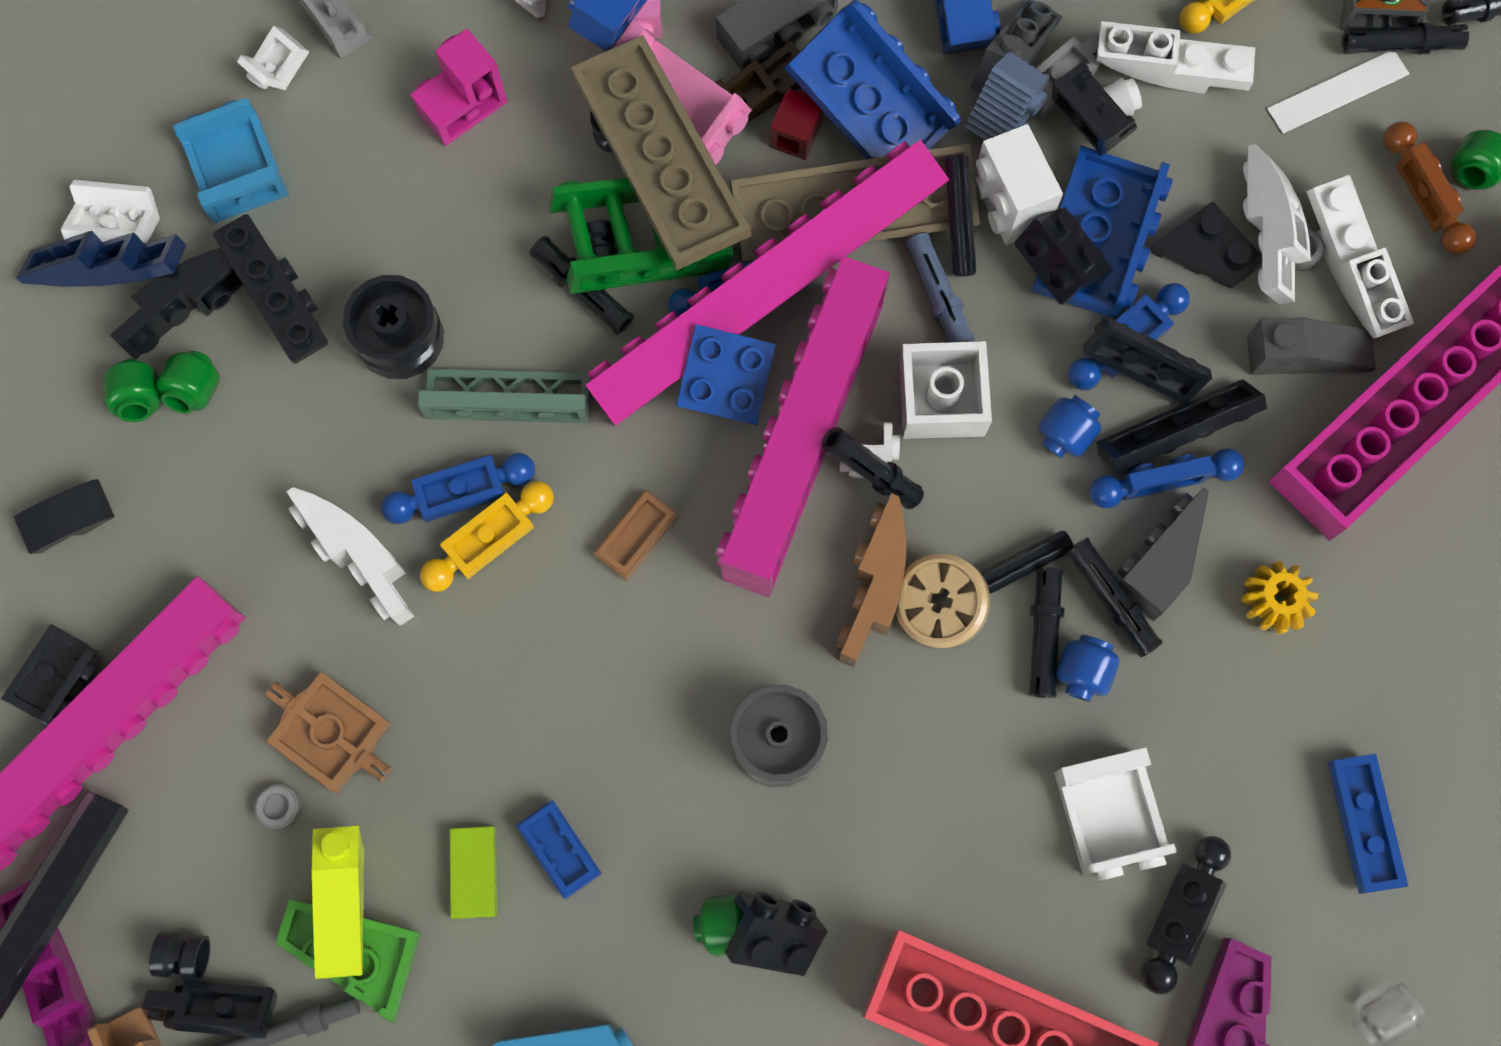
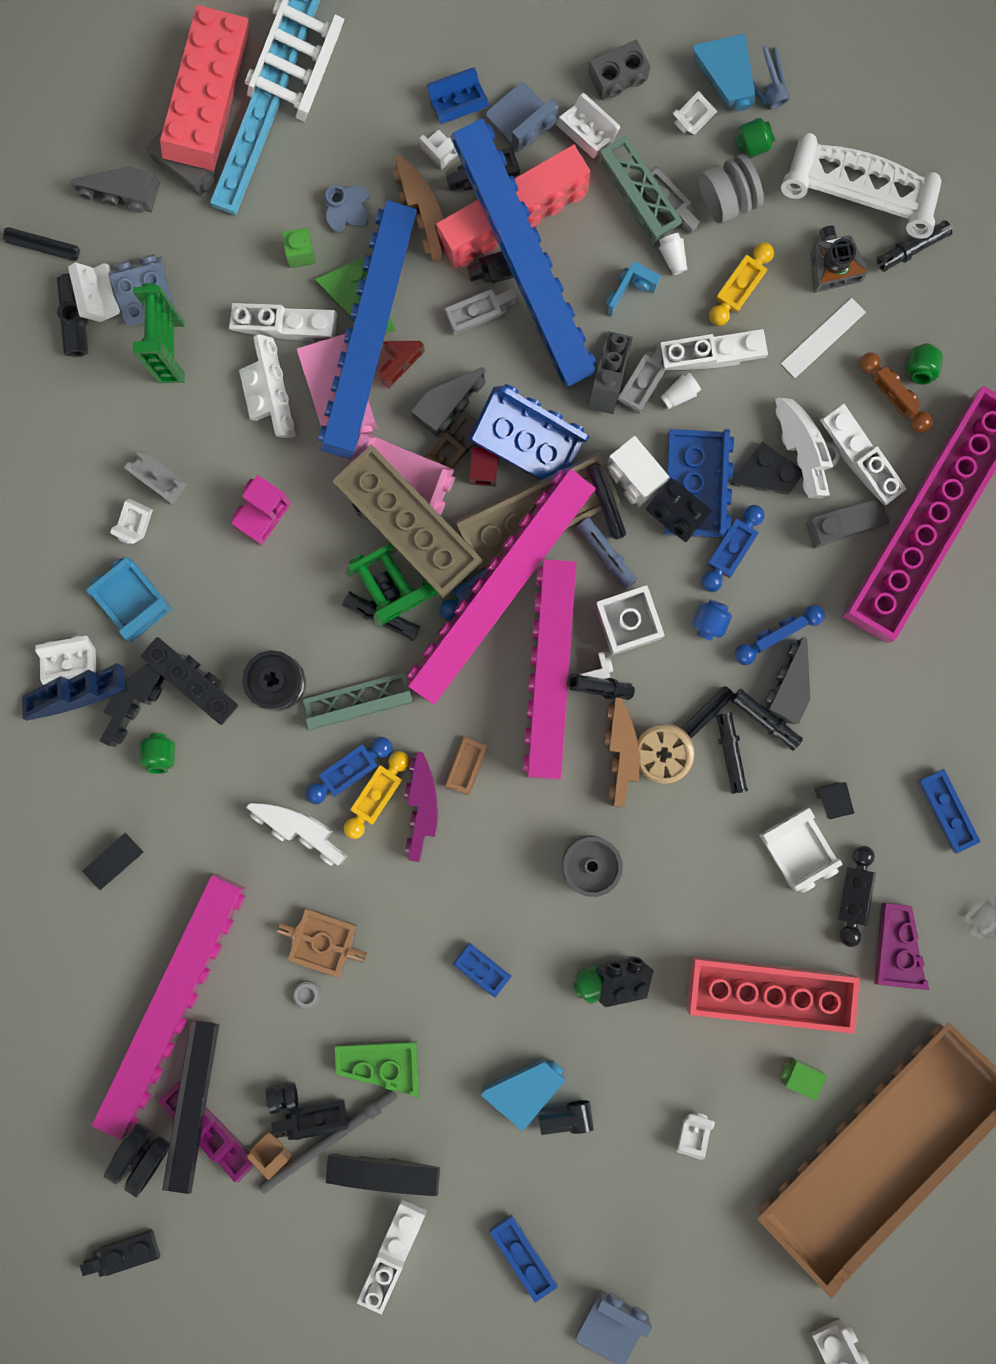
camera: 15 degrees left, 10 degrees up
(51, 674) = (144, 960): black bracket -> none
(131, 390) = (124, 769): green head -> none
(338, 901) = (365, 1041): neon yellow slope -> none
(473, 872) = (435, 997): lime tile -> none
(556, 557) = (424, 796): none -> magenta slope
(725, 374) = (492, 652): blue hinge -> none
(1007, 98) = (615, 417): sand blue brick -> none
(1087, 667) = (762, 768): blue head -> none
(1092, 109) = (671, 404): black hinge -> none
(1146, 360) = (748, 564): black plate -> none
(1181, 425) = (779, 597): black plate -> none
(1190, 749) = (835, 800): none -> black panel
(1288, 612) = (875, 689): yellow gear -> none
(1415, 38) = (865, 288): black pin -> none

